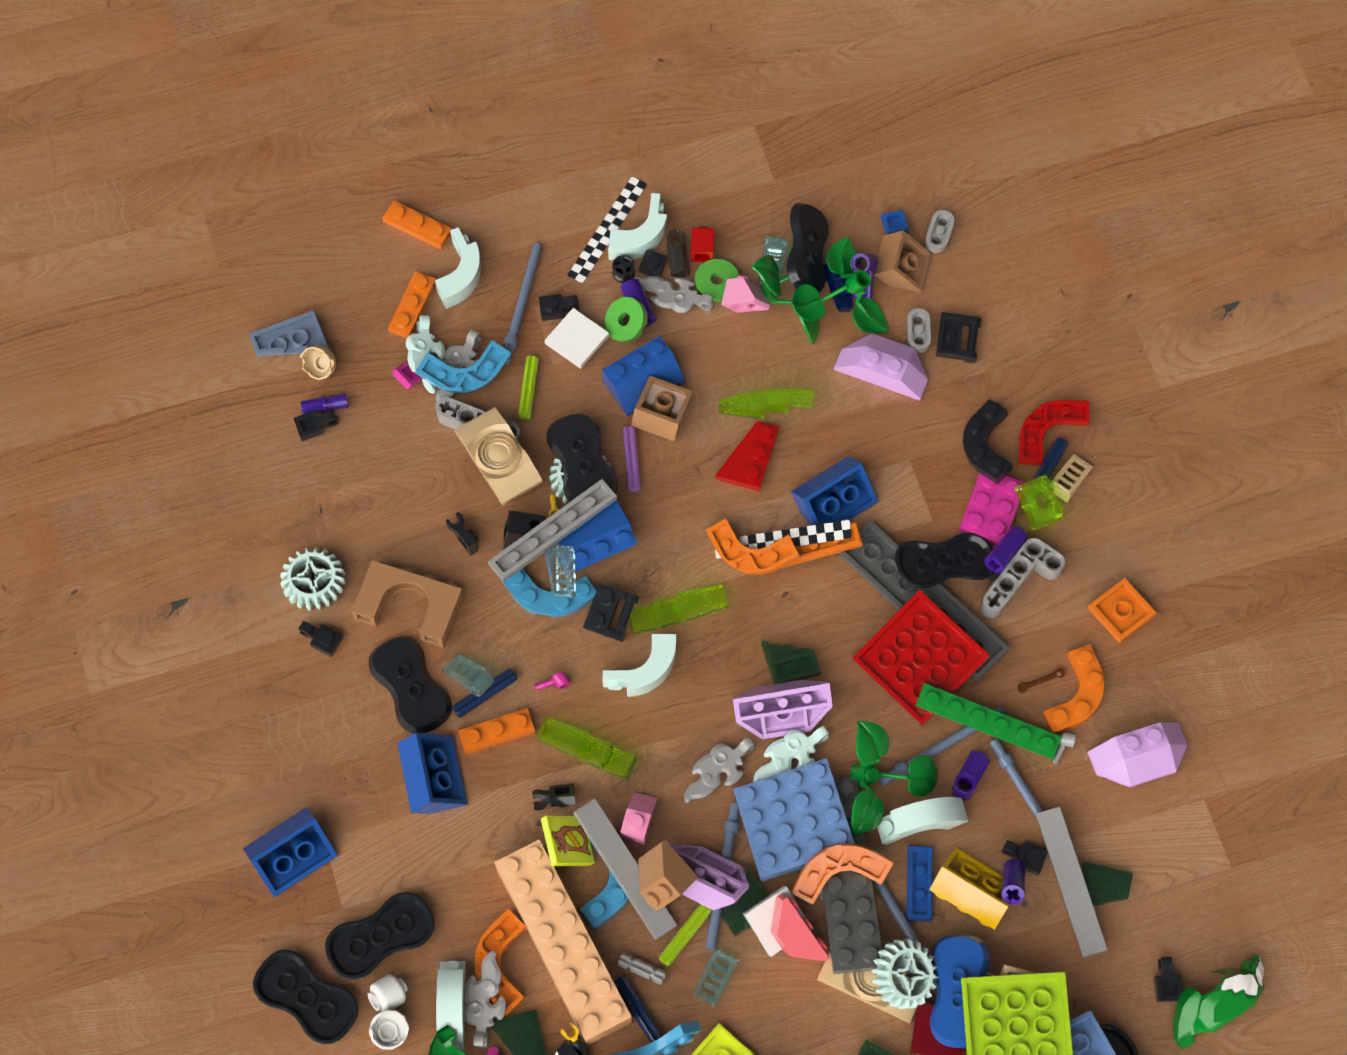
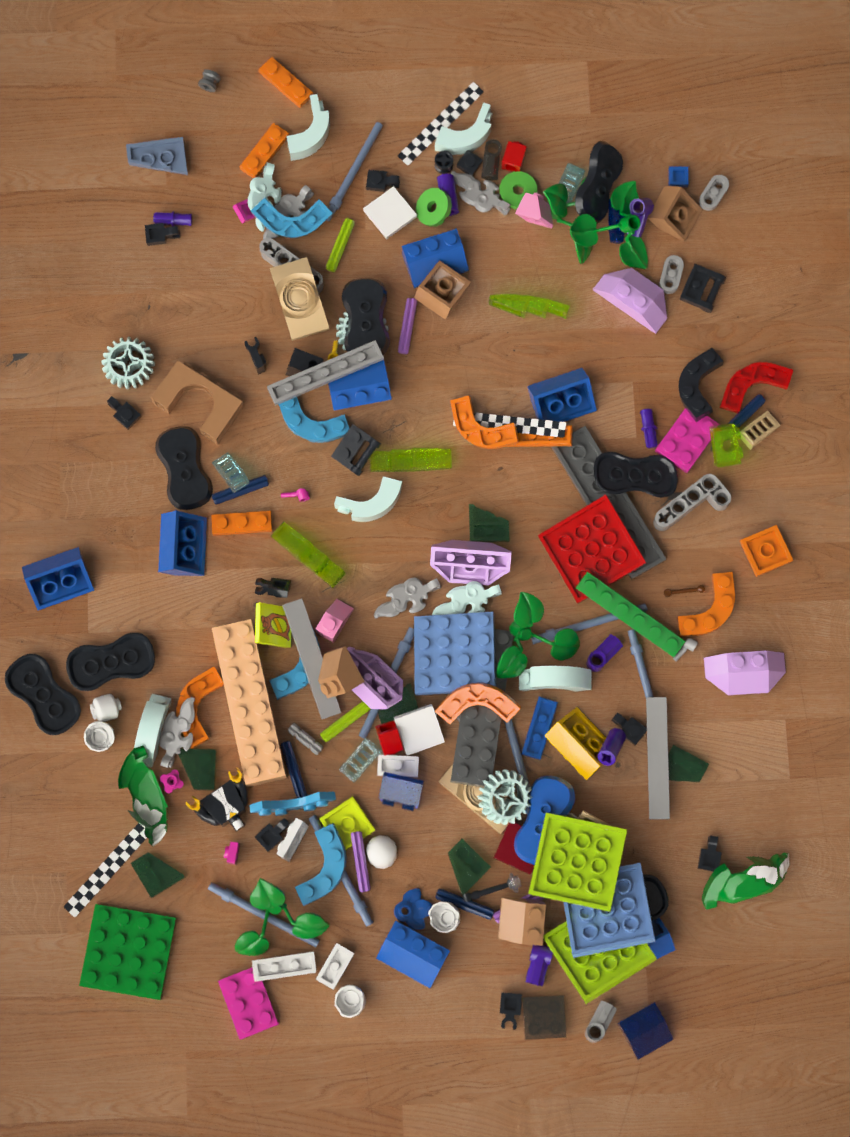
camera: 15 degrees right, 10 degrees up
(318, 362) = (176, 182): tan hair -> none
(328, 242) = (209, 80): none -> dark grey wheel
(561, 556) = (324, 395): clear light blue slope -> none
(744, 940) = (389, 738): none -> red brick
(750, 458) = (504, 348): red wing -> none
(763, 972) = (398, 765): none -> white plate
(776, 1000) = (401, 791): none -> clear blue slope
(795, 932) = (429, 743): coral slope -> none
(944, 506) = (649, 428): none -> dark purple axle
(1005, 550) = (686, 478): dark purple piece -> none

